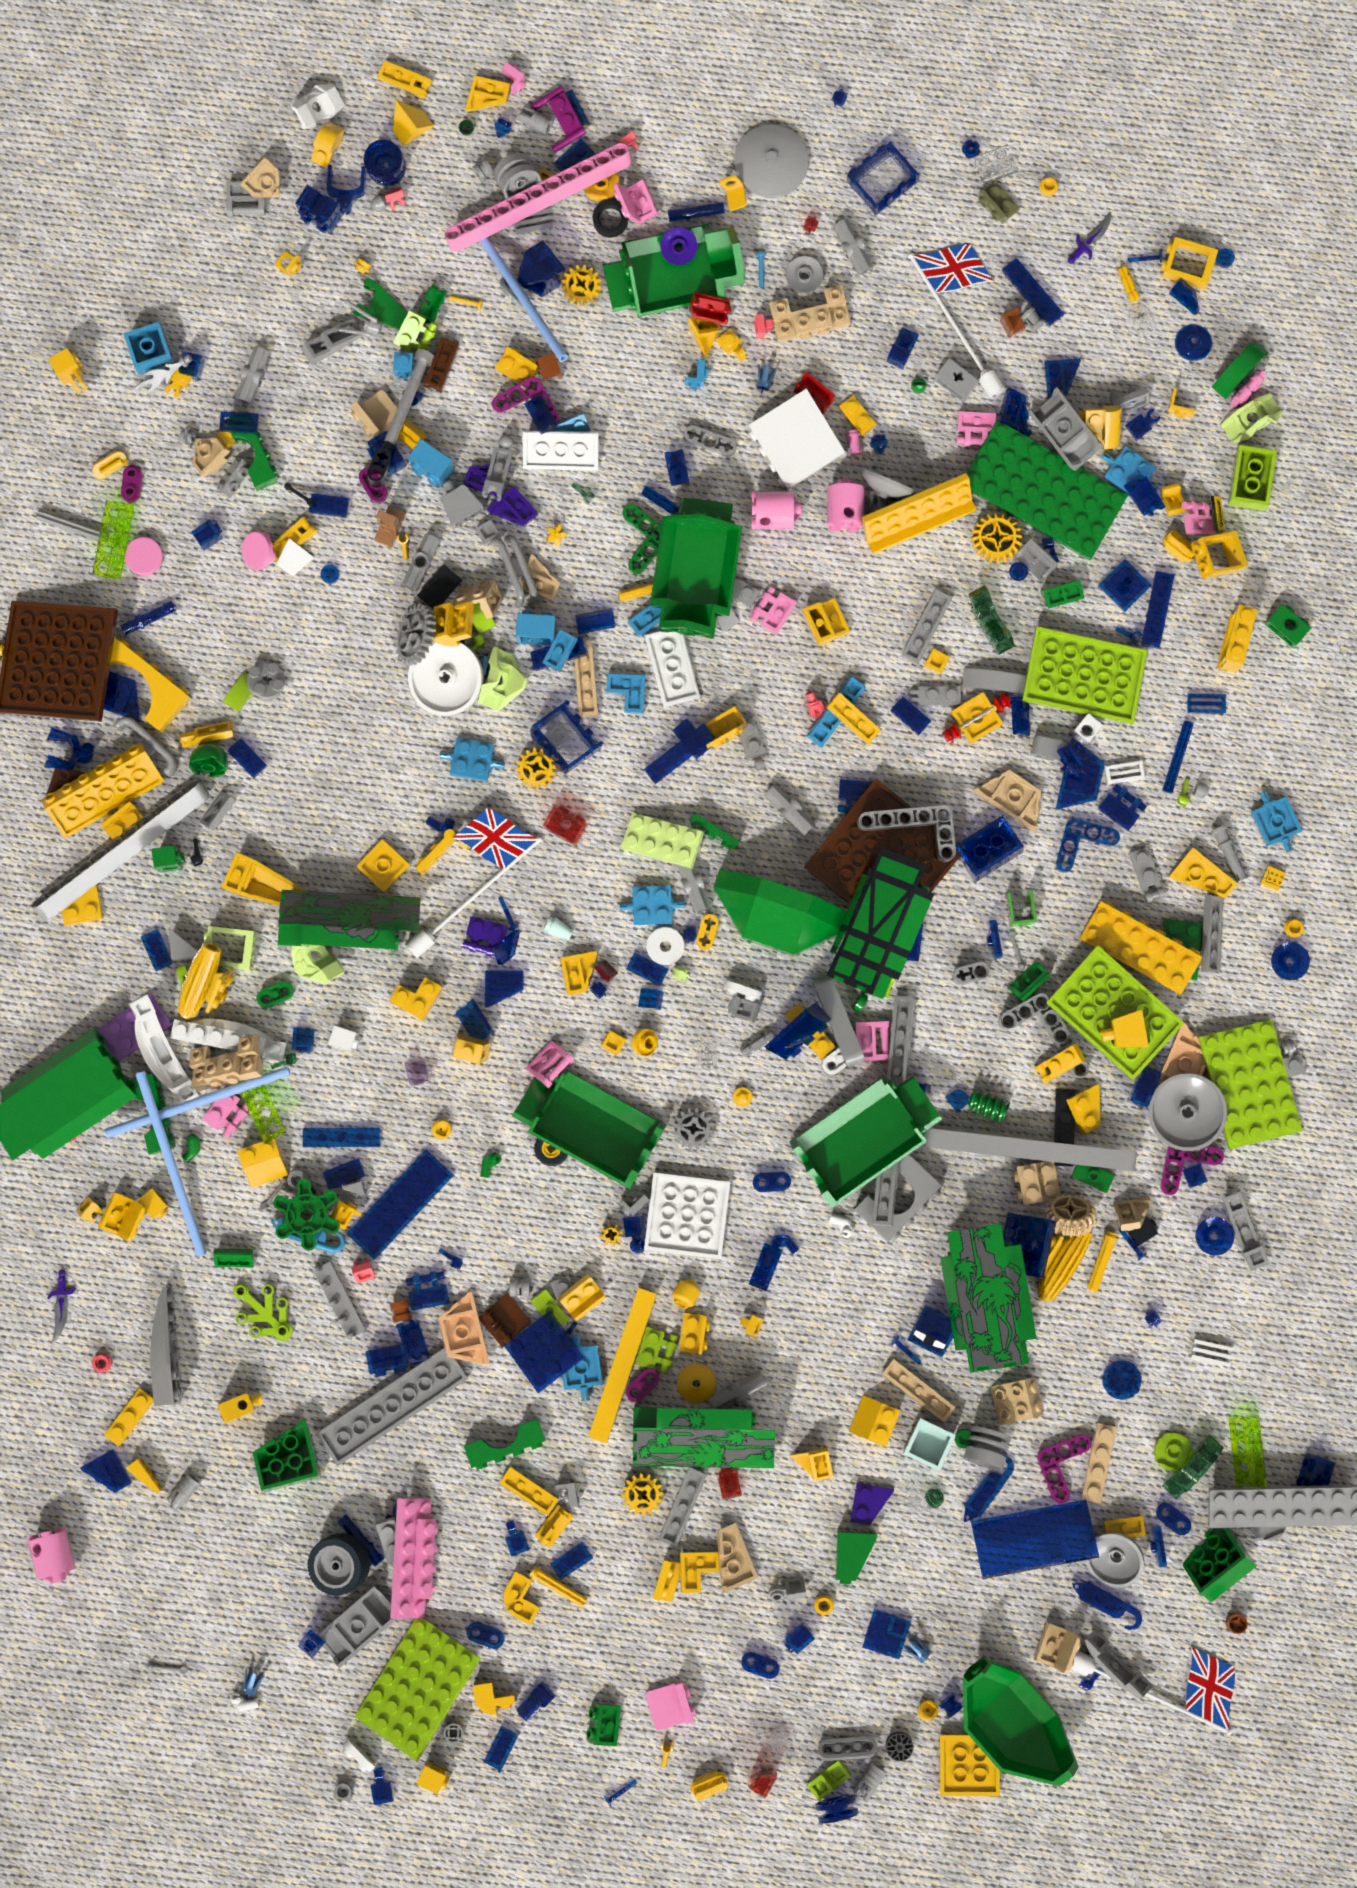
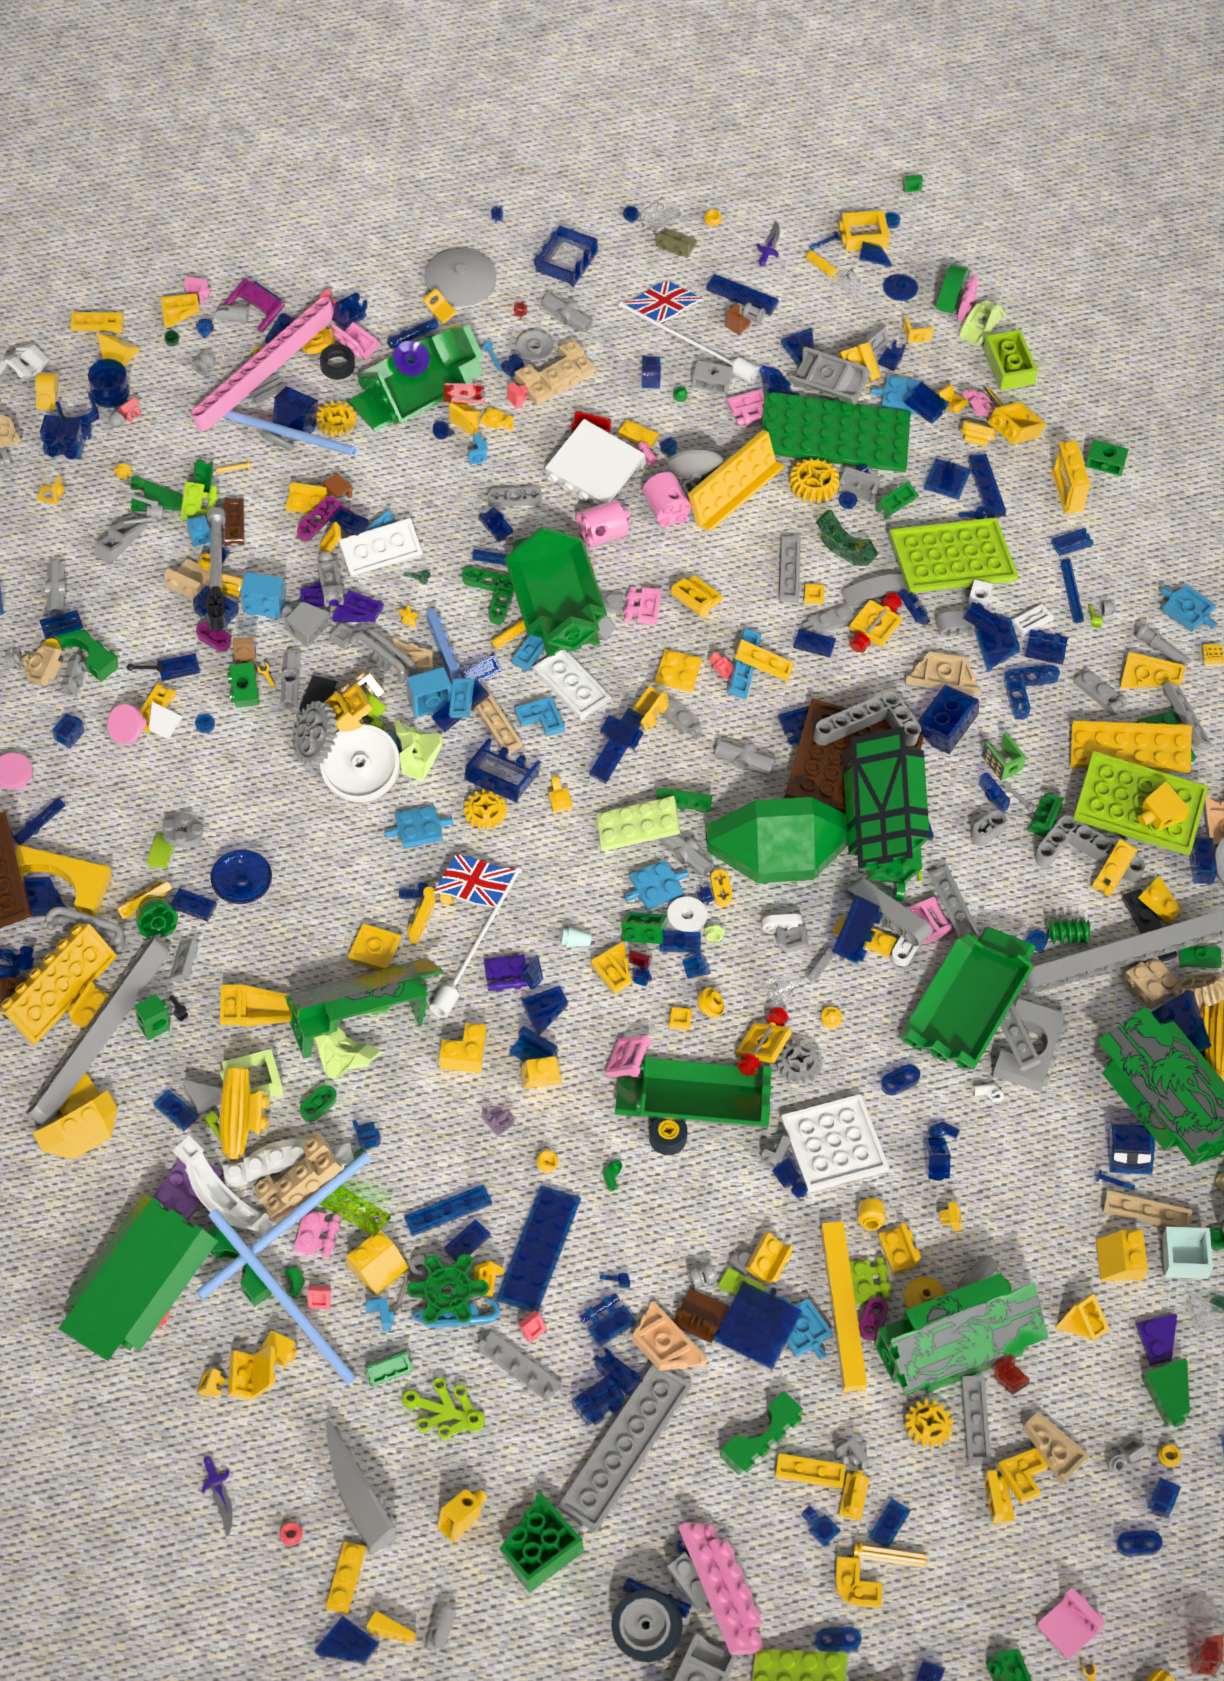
camera: 30 degrees left, 25 degrees down
(72, 934) = (79, 1128): none -> yellow wedge
(204, 1172) = (319, 1297): none -> coral tile
(251, 1211) = (380, 1305): none -> dark azure bracket
(287, 741) = (241, 867): none -> clear blue dish
(344, 1039) = (408, 1115): white brick -> none
(356, 1187) = (486, 1249): light grey slope -> none
(384, 543) = (243, 696): none -> green brick
(392, 401) = (204, 561): none -> yellow plate
(400, 1311) = (588, 1347): dark orange wheel -> none
(507, 913) = (529, 953): clear blue pin -> none
(515, 174) = (235, 350): light grey wheel -> none
(517, 425) = (331, 538): none -> yellow tile
(573, 572) = (441, 638): none -> medium blue plate
(574, 833) = (529, 852): clear red brick -> none
(607, 782) = (559, 797): none -> yellow plate
(615, 1237) = (768, 1195): yellow gear -> none
(621, 943) = (644, 927): none -> green bracket
(644, 165) = (349, 310): none -> clear blue hinge
(670, 1100) = (763, 1042): none -> yellow plate
(675, 337) = (441, 430): none -> clear blue plate
(764, 379) = (541, 436): flat silver piece -> none
(773, 289) = (512, 365): none -> clear blue wheel
(774, 692) = (678, 670): none -> yellow plate
(1267, 223) = (913, 183): none -> green plate

